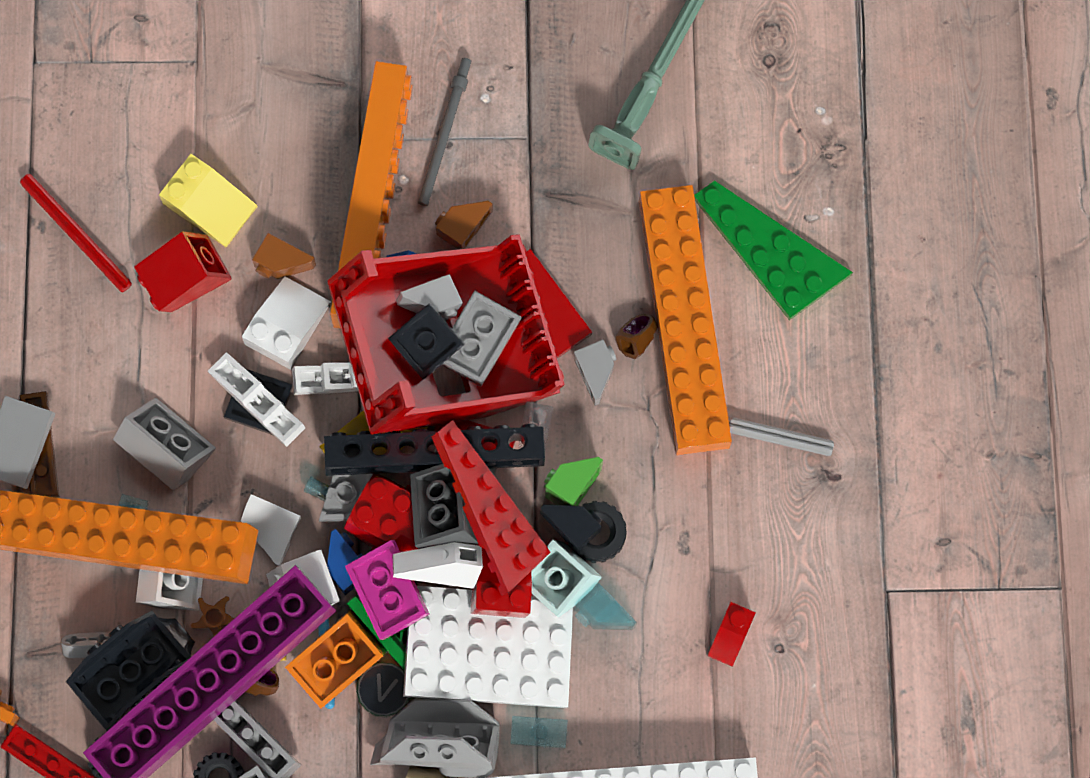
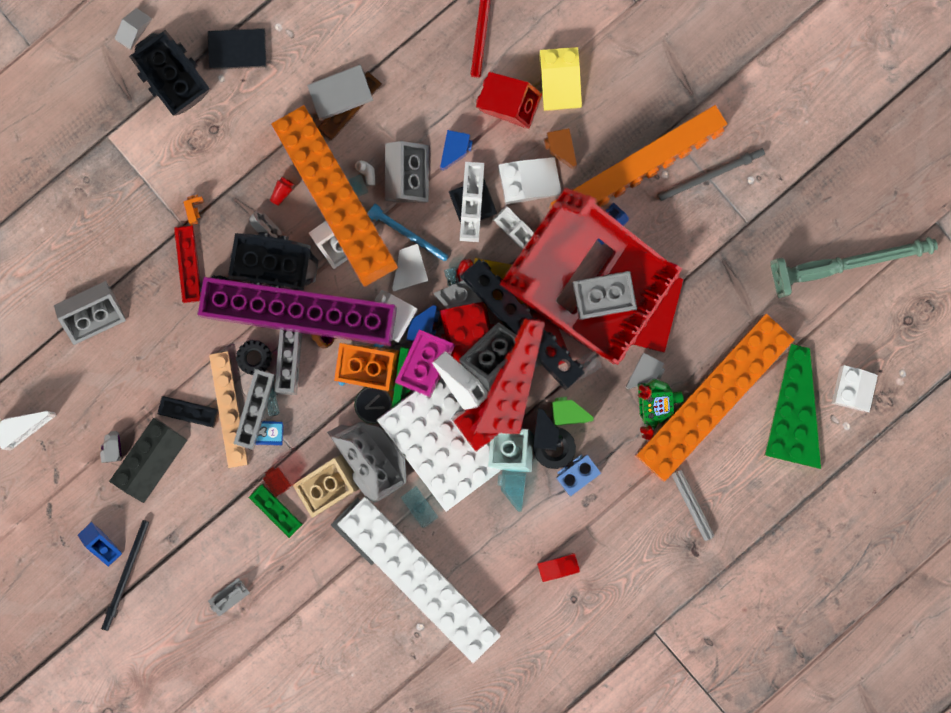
camera: 50 degrees right, 10 degrees up
(64, 594) = (281, 190): none -> red cone
(125, 484) = (367, 170): none -> white arm
(183, 370) = (455, 148): none -> blue slope
(213, 616) = (336, 281): dark orange animal -> none
(231, 497) = (376, 213): none -> dark azure piece
(317, 466) = (463, 266): none -> red arm
(426, 341) = (577, 269): black tile -> none
(438, 292) = (605, 252): light grey slope -> none
(462, 222) = (666, 229): dark orange slope -> none
(636, 335) = (683, 378): reddish brown rock -> none
(640, 384) = (656, 404): none -> torso
(653, 531) = (580, 478): none -> medium blue brick
(795, 170) = (854, 388): none -> white slope

